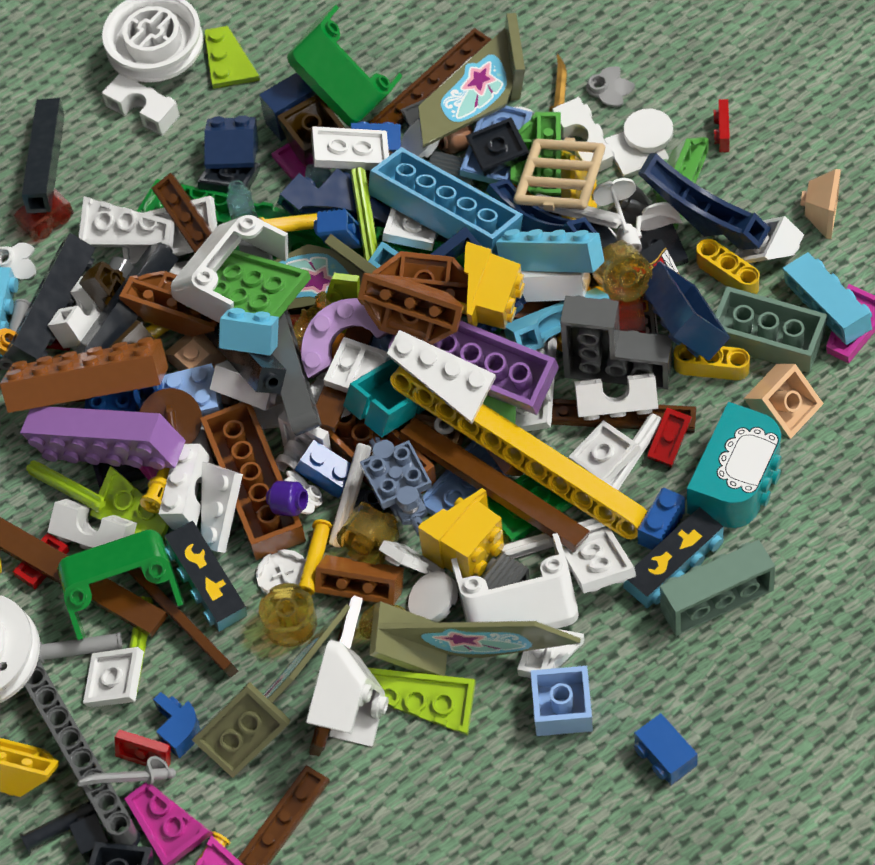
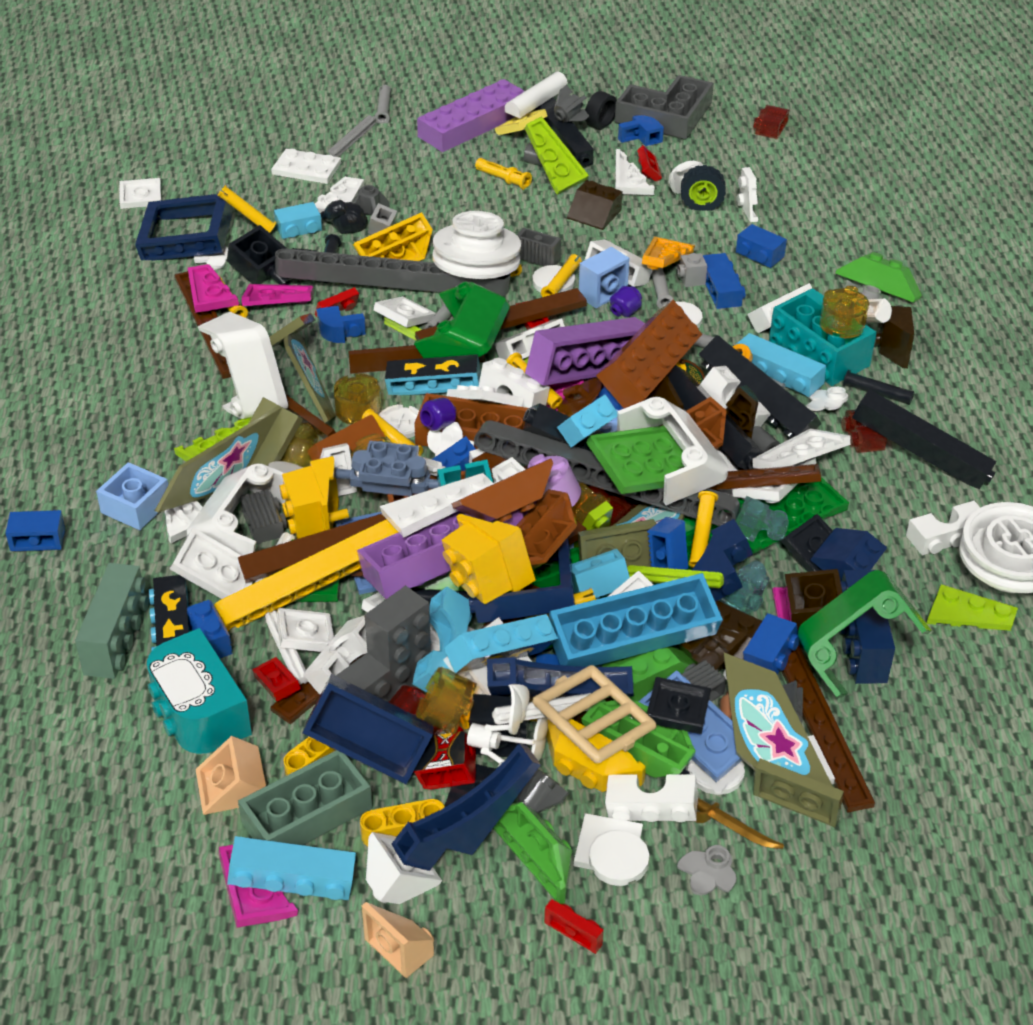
camera: 115 degrees right, 15 degrees down
(154, 770) = (315, 281): light grey sword -> none
(348, 148) = (756, 595): white plate -> none

